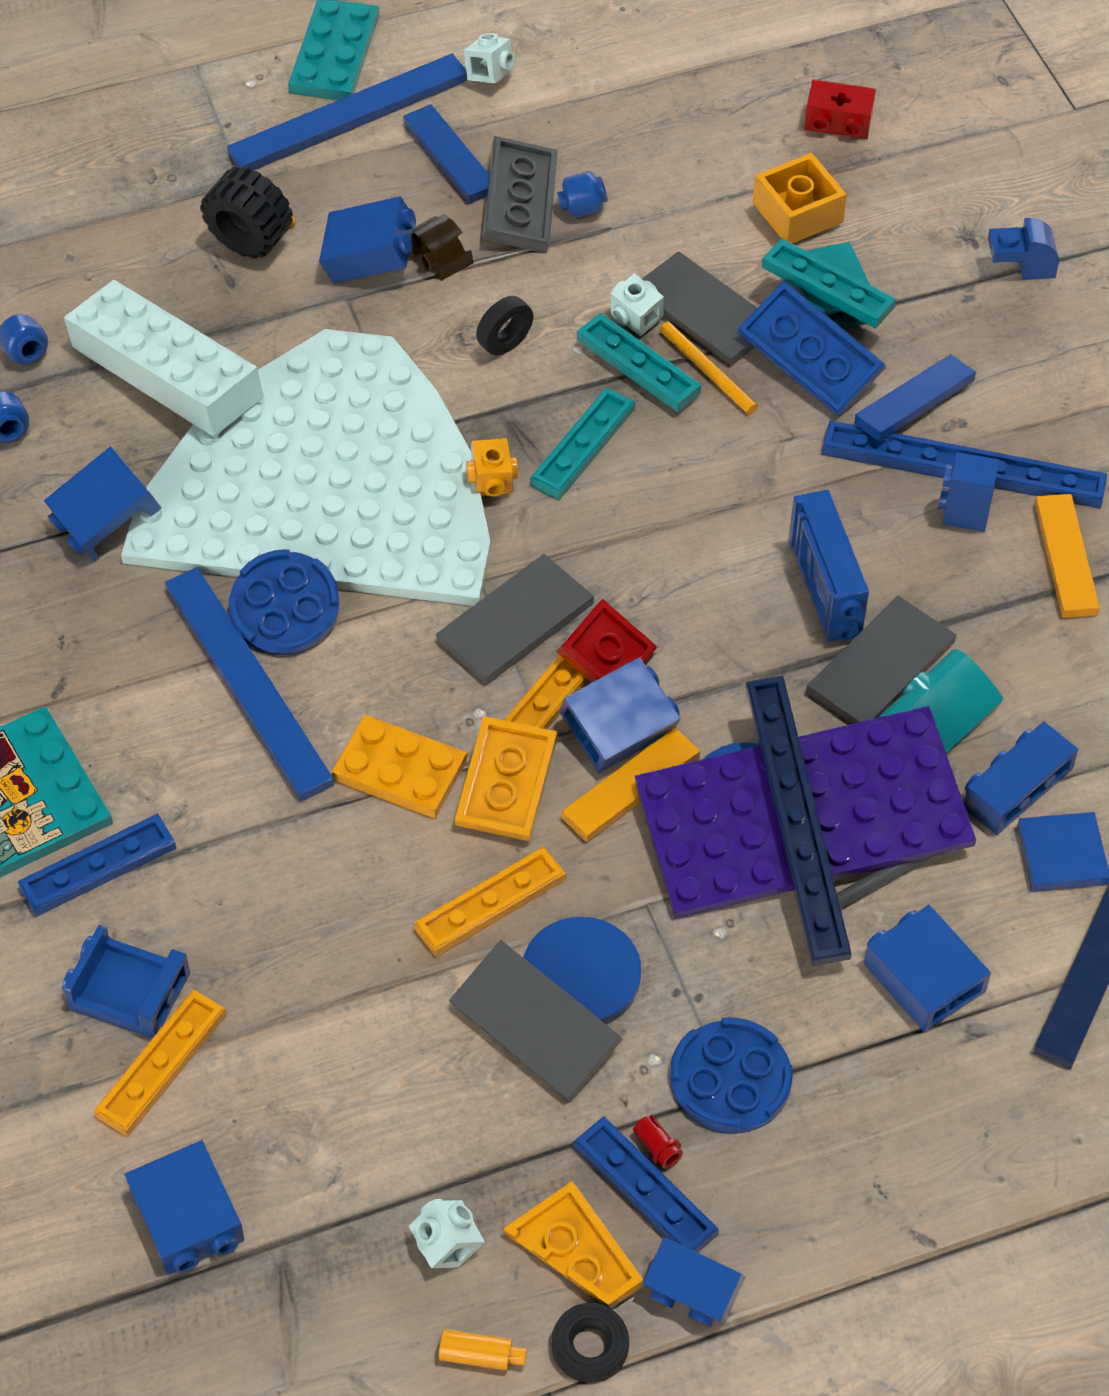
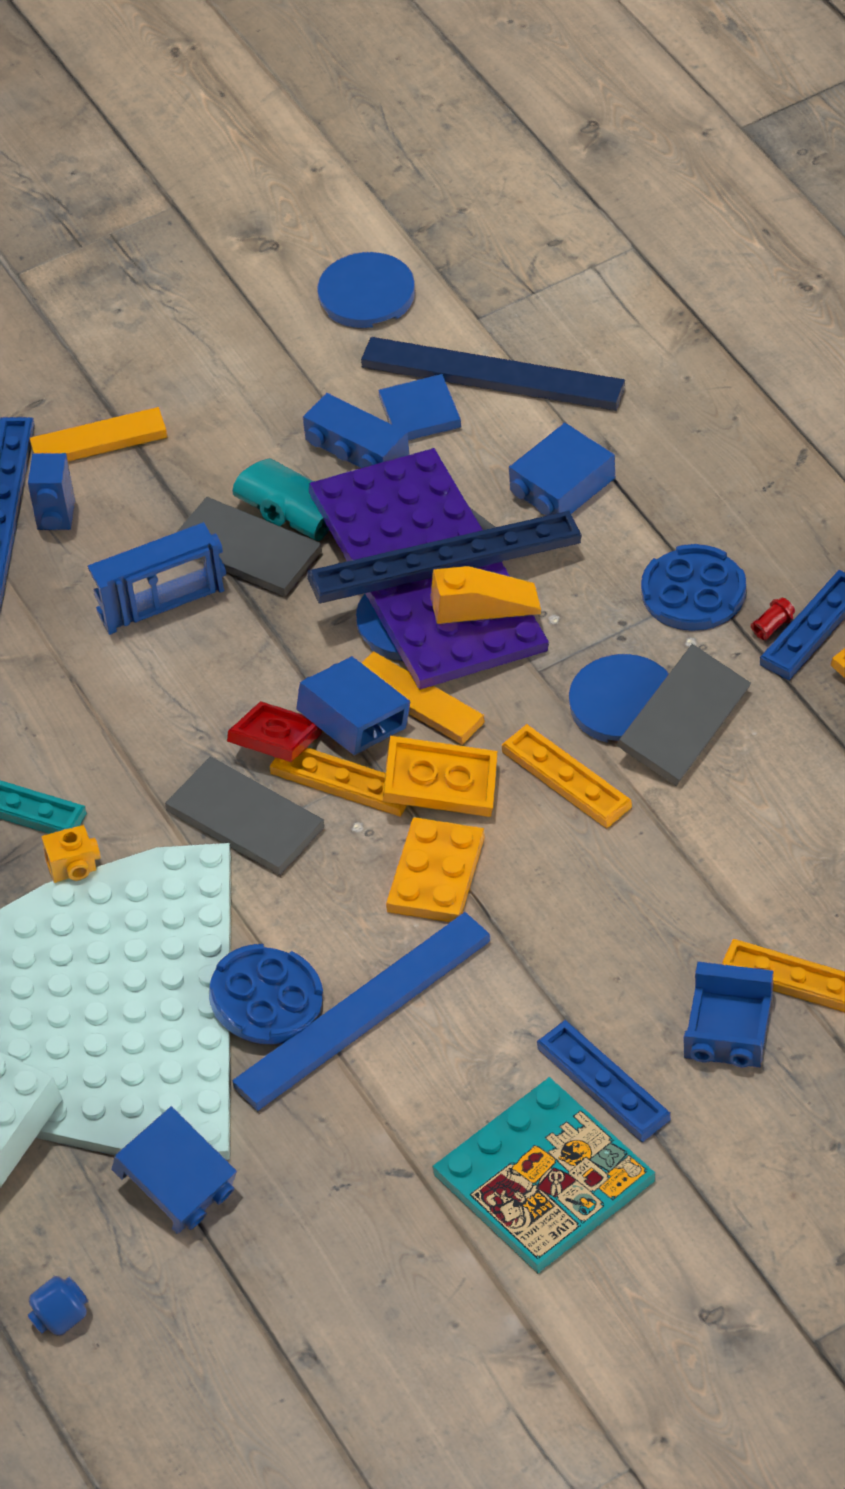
camera: 95 degrees left, 5 degrees down
(727, 841) = (478, 594): none -> light orange slope

